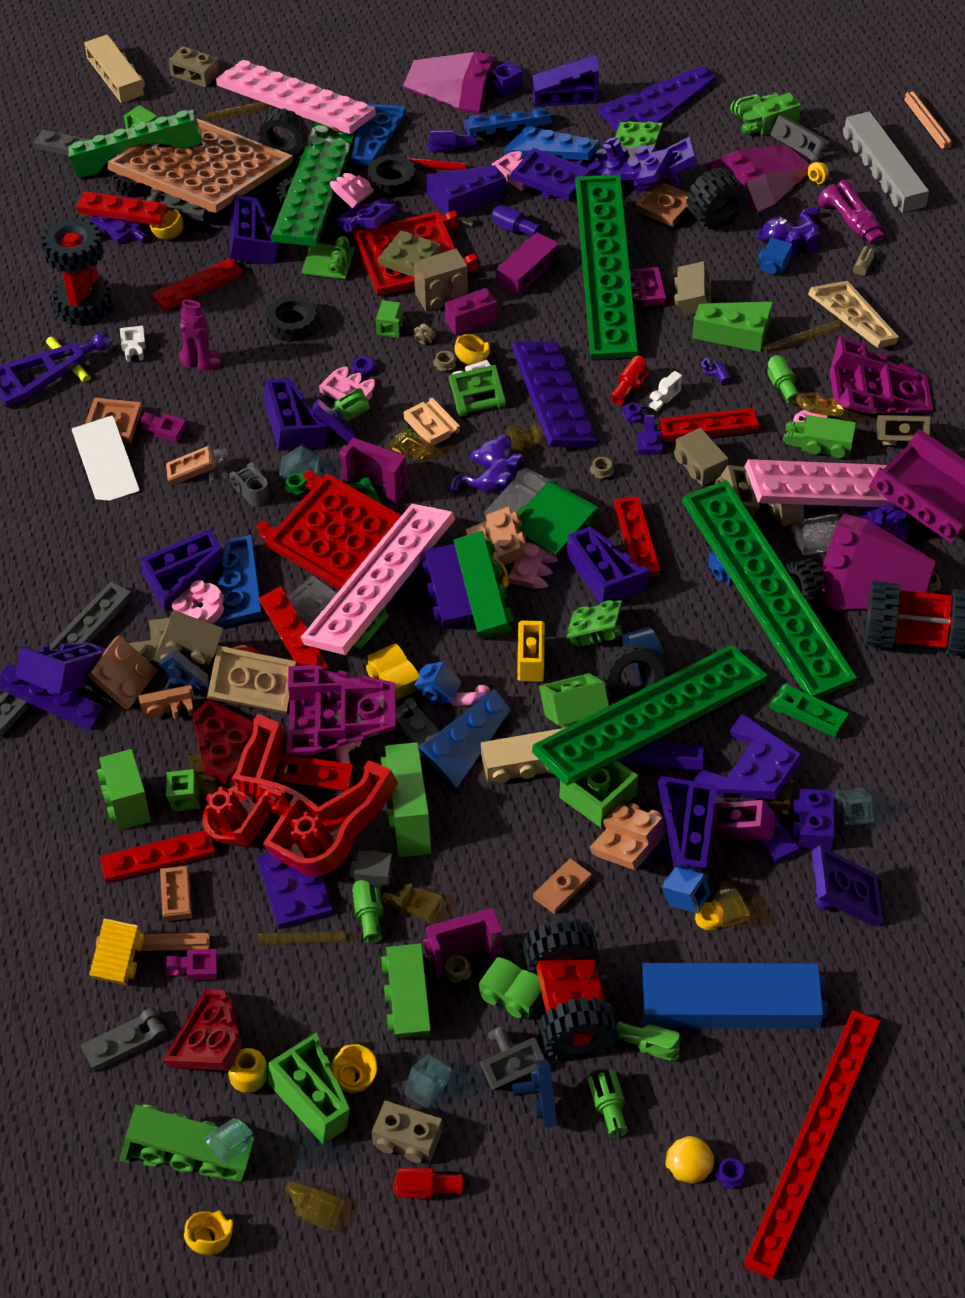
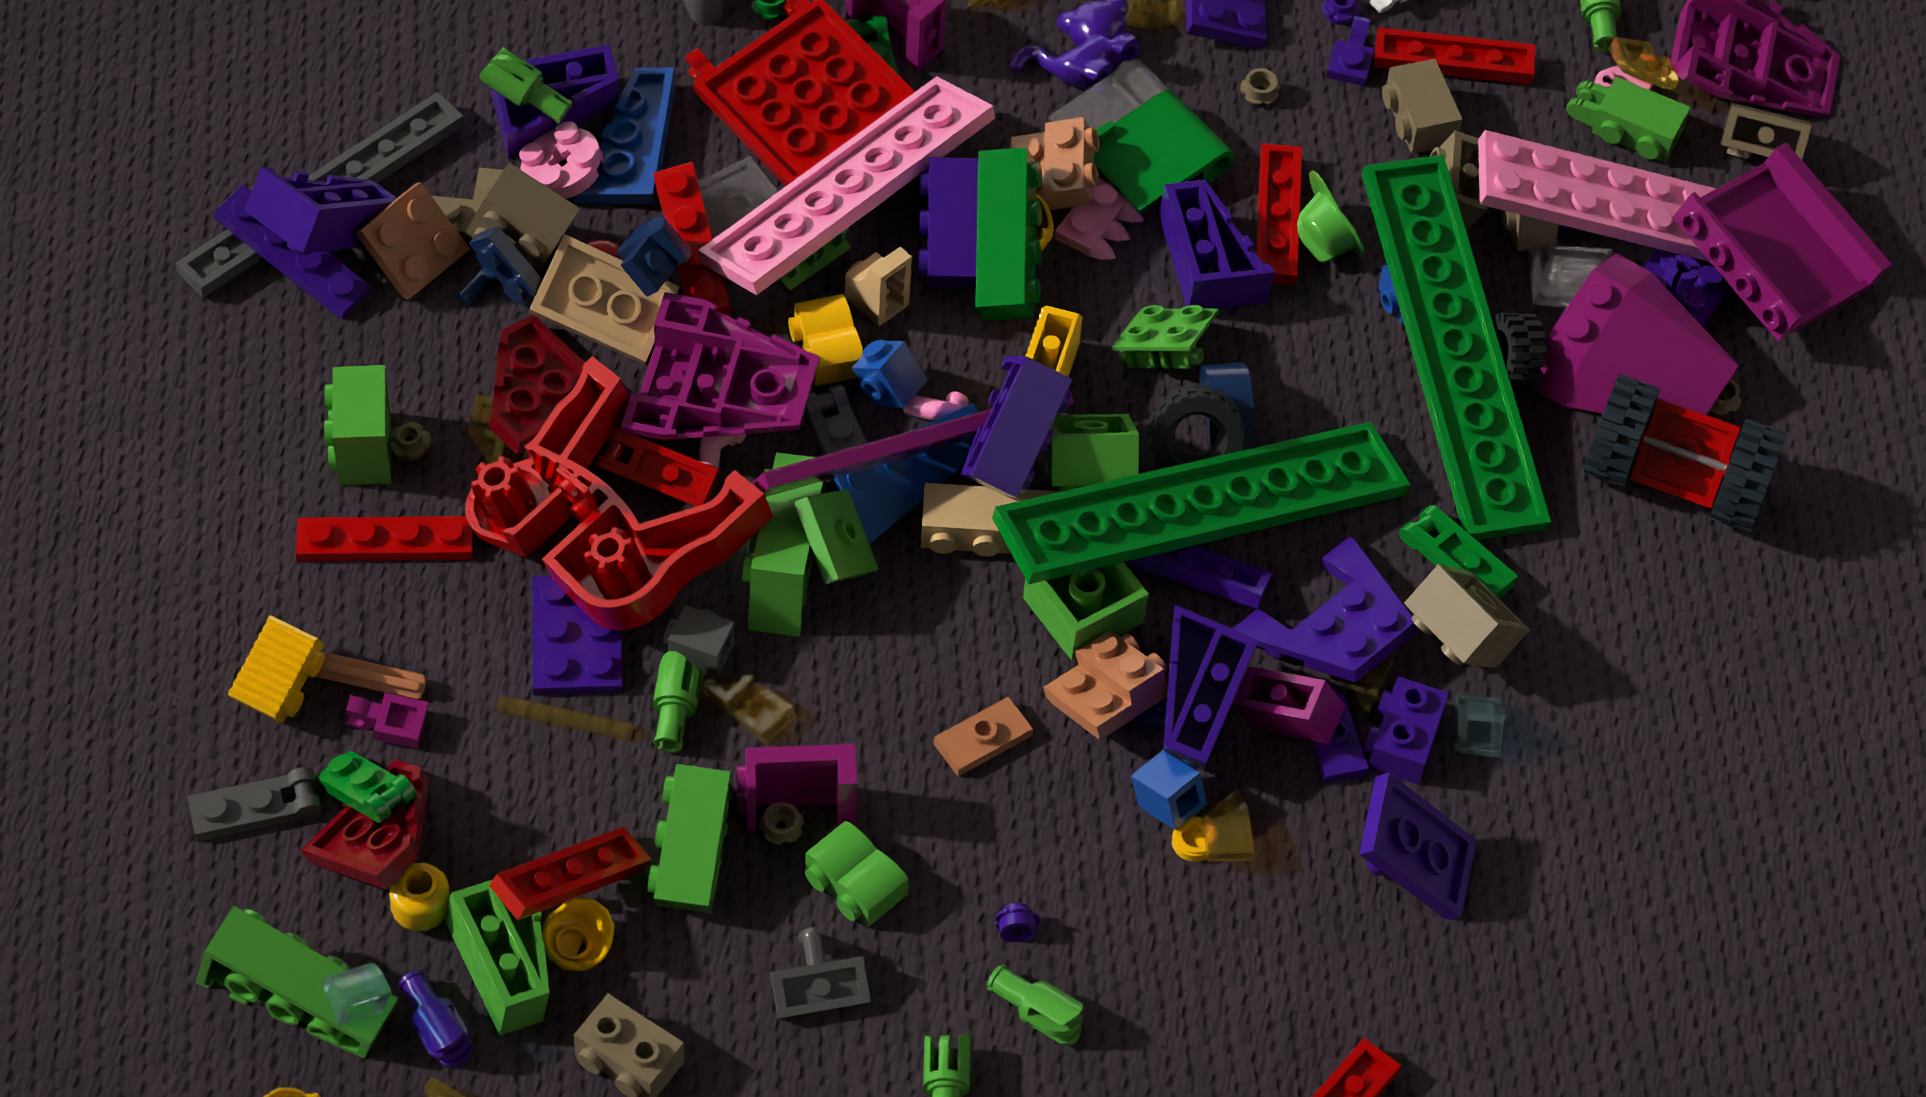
camera: 10 degrees right, 5 degrees up
(155, 798) = (411, 449): none -> olive plate
(165, 563) = (523, 85): none -> bright green arm
(166, 701) = (467, 301): nougat plate -> none
(176, 893) = (394, 603): nougat plate -> none
(183, 790) = (449, 447): bright green brick -> none
(193, 1010) = (365, 786): none -> green plate
(274, 644) = (652, 254): none -> dark blue brick
(281, 1146) = (437, 1021): none -> dark purple arm
(338, 1031) = (570, 873): none -> red plate
(416, 632) = (880, 285): none -> tan arch
(427, 1080) = (683, 980): clear light blue brick -> none
(438, 786) = (836, 536): none -> bright green plate
(468, 719) = (872, 454): none -> magenta tile
(529, 693) = (1017, 426): none -> dark purple wedge
(542, 1084) = (850, 1030): dark blue plate -> none
(576, 1016) = (935, 927): black plate -> none
(620, 989) = (1017, 917): none -> dark purple plate
(667, 537) = (1325, 227): none -> bright green piece
(732, 995) = (1187, 969): blue brick -> none
(829, 744) = (1465, 617): none -> dark tan brick

